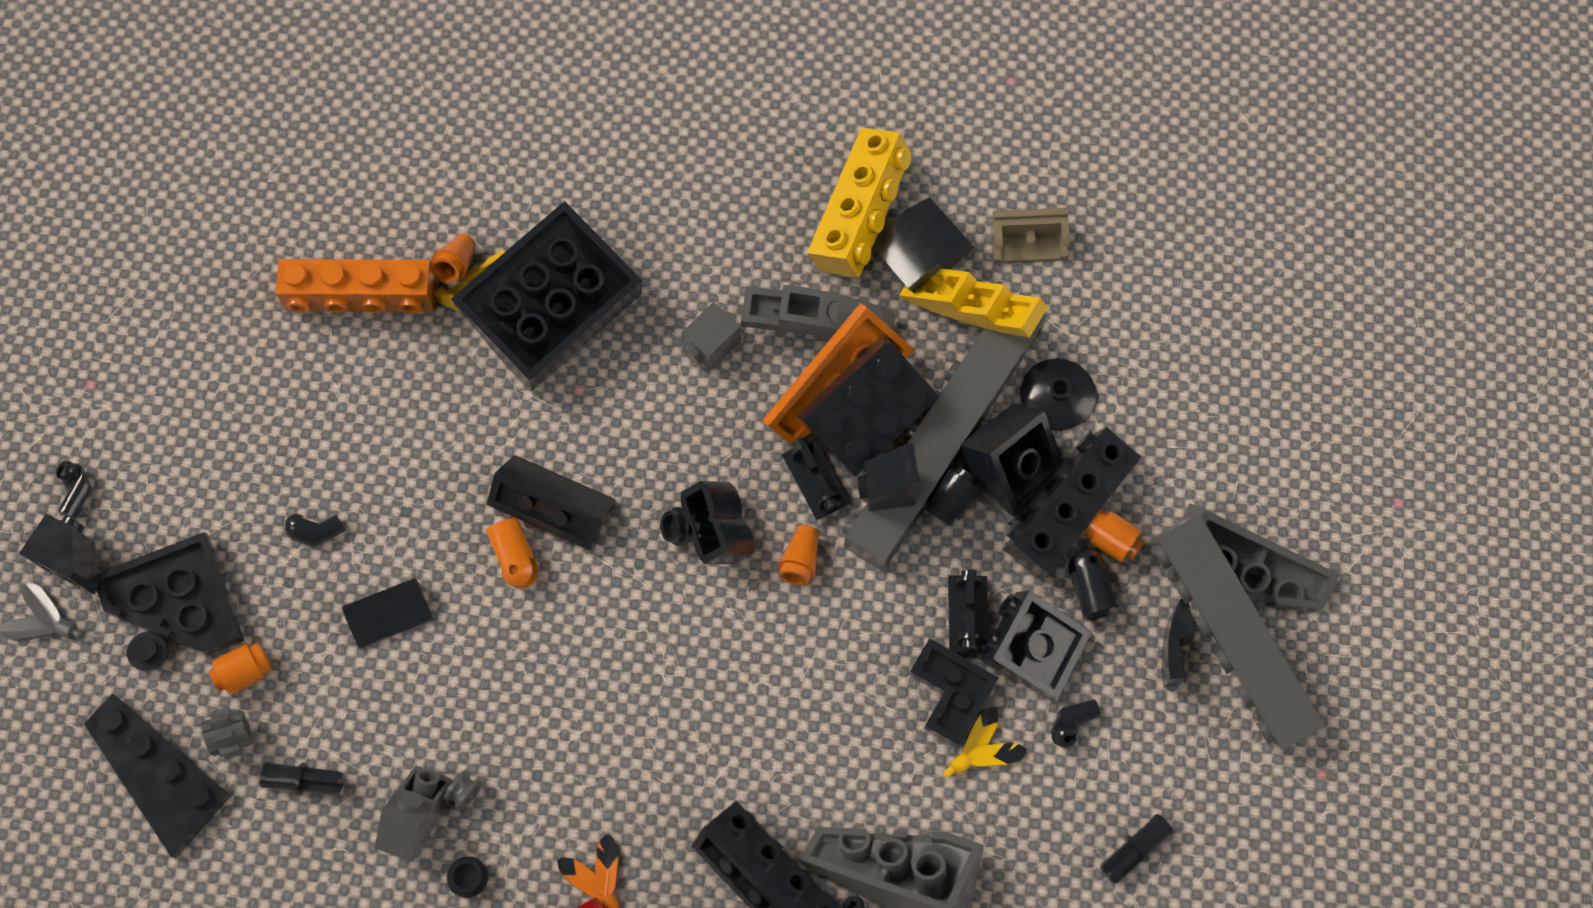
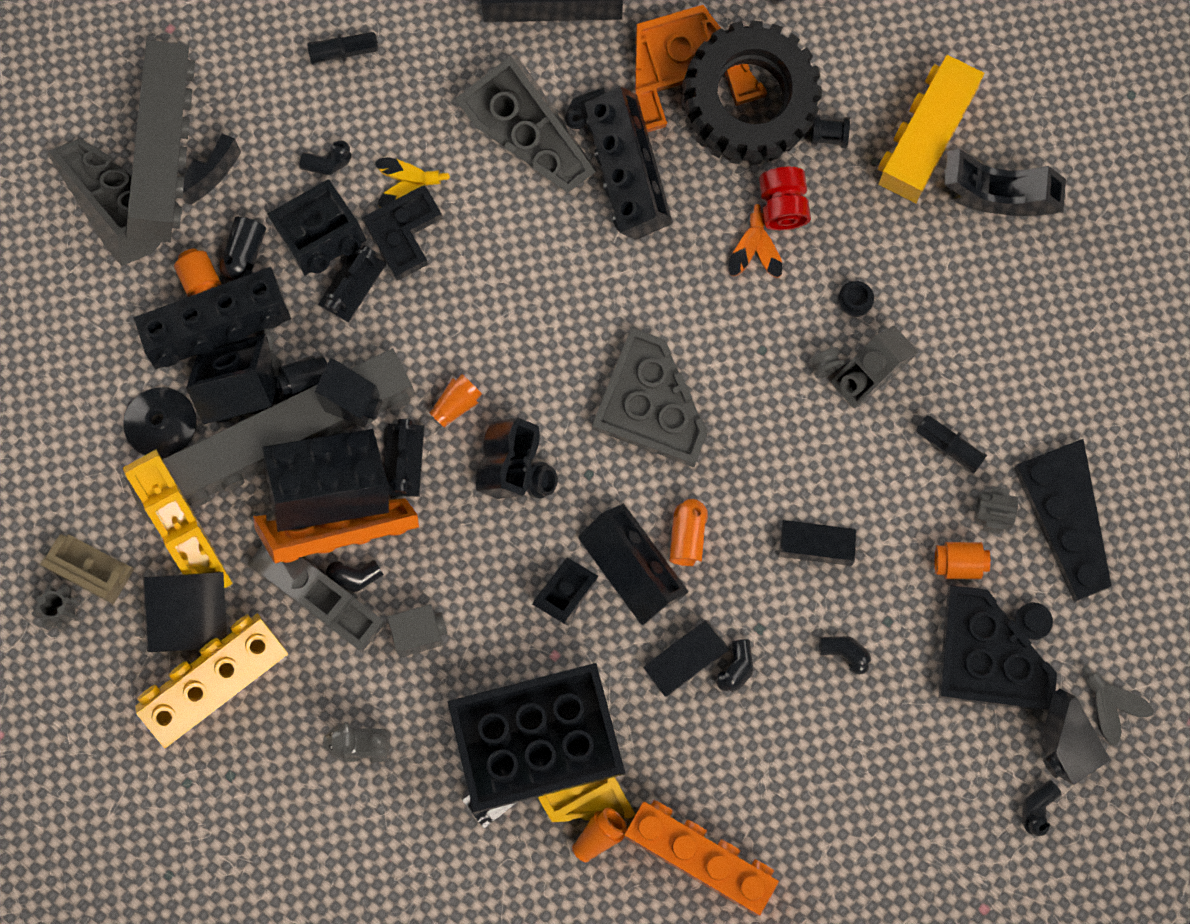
camera: 150 degrees left, 5 degrees up
(402, 463) = (740, 670): none -> black arm
(455, 444) = (686, 658): none -> black slope
(596, 434) = (565, 591): none -> black slope
(615, 657) = (651, 402): none -> dark grey plate
(702, 219) = (357, 743): none -> dark grey animal
(792, 353) = (353, 579): none -> black arm
(1034, 180) = (47, 603): none -> dark grey gear

